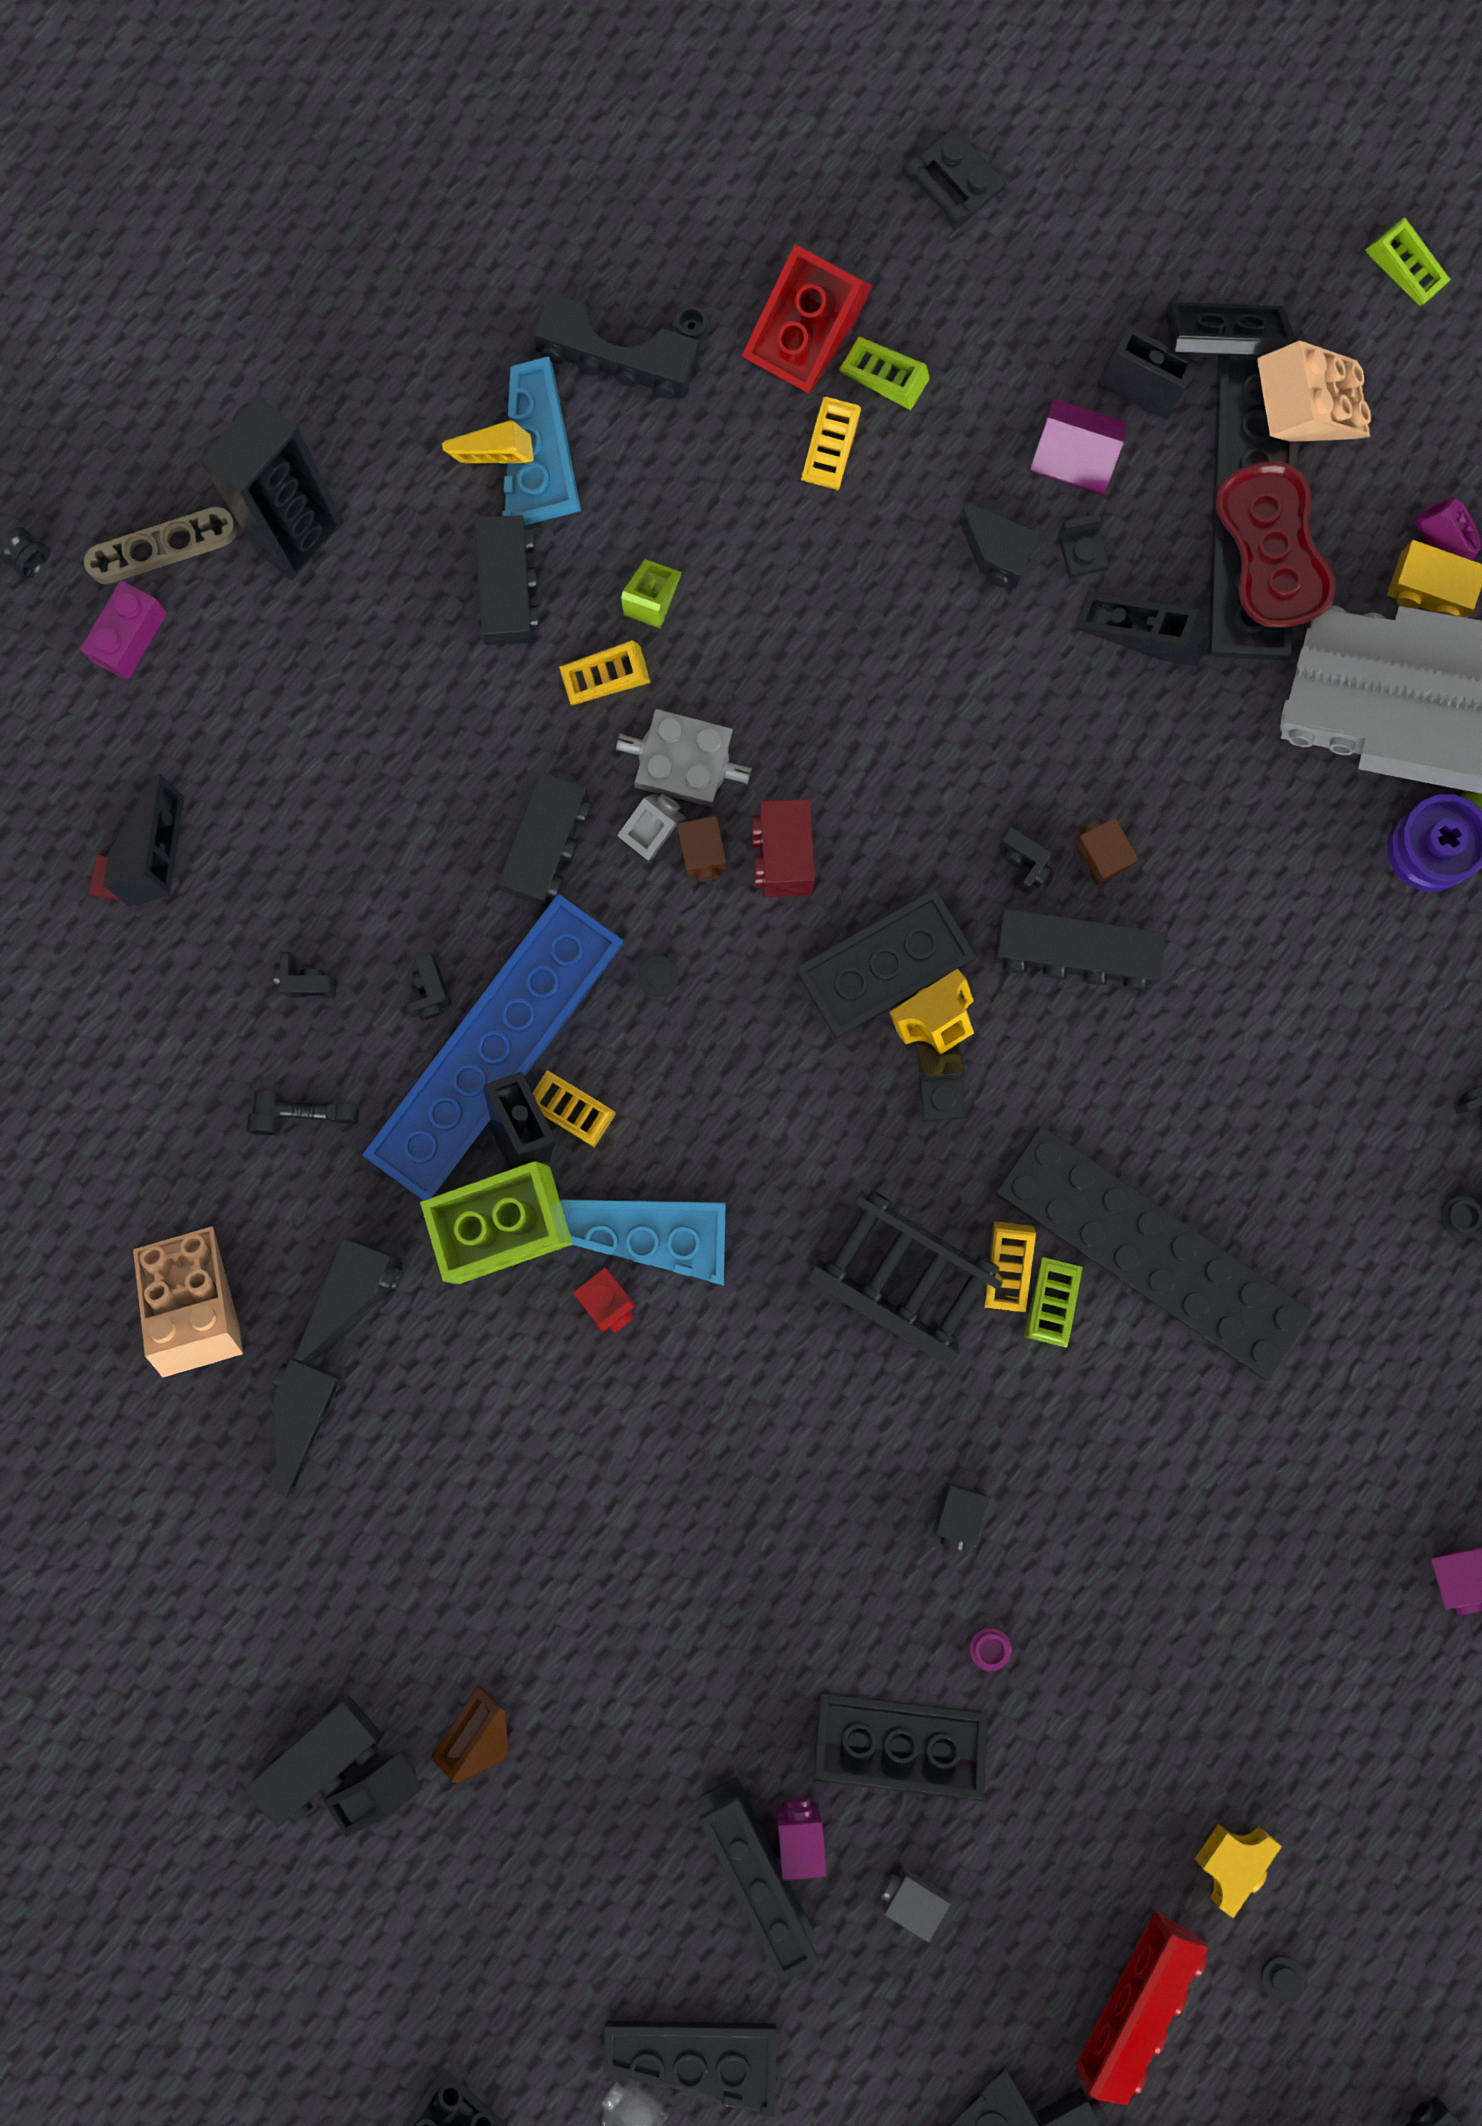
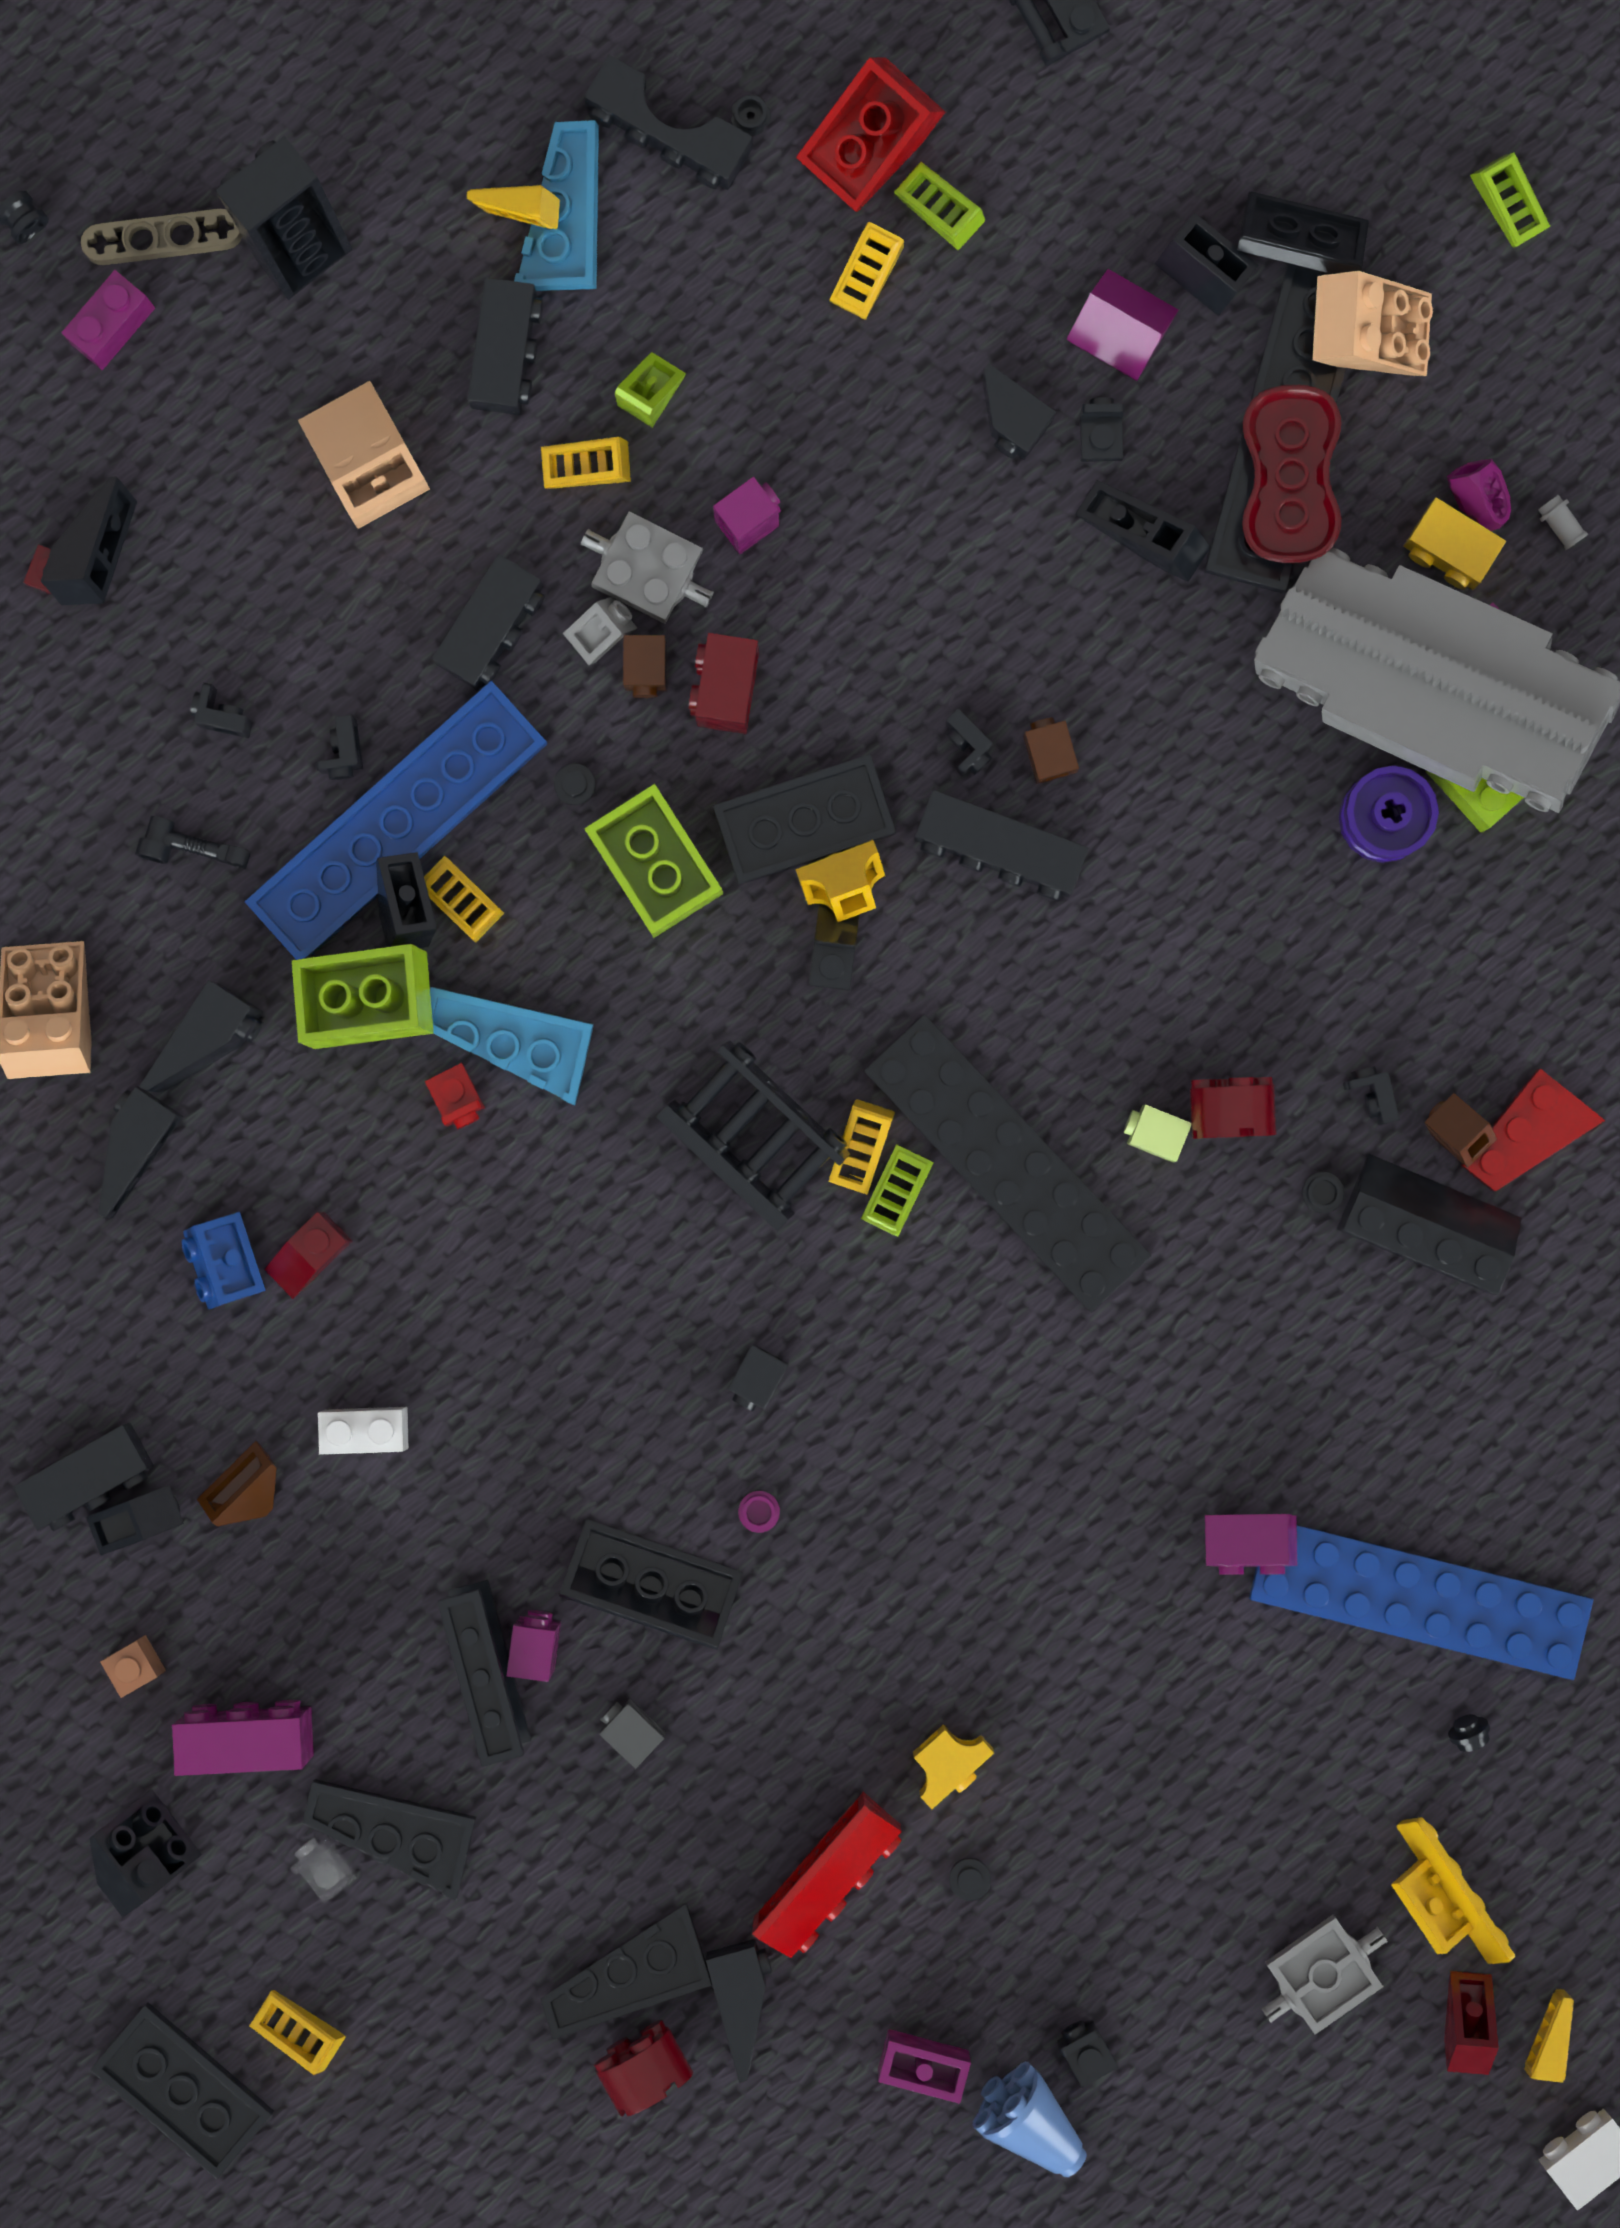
camera: 20 degrees right, 5 degrees up
(393, 707) = (363, 454): none -> light nougat slope
(400, 1947) = (133, 1666): none -> nougat brick
(409, 1513) = (222, 1261): none -> blue bracket
(492, 1488) = (307, 1253): none -> dark red slope
(526, 2000) = (243, 1738): none -> magenta brick
(583, 1654) = (363, 1430): none -> white brick
(751, 1032) = (654, 860): none -> lime brick
(770, 686) = (748, 514): none -> magenta brick
(1292, 1192) = (1157, 1132): none -> yellowish green brick
(1364, 1155) = (1233, 1107): none -> dark red brick

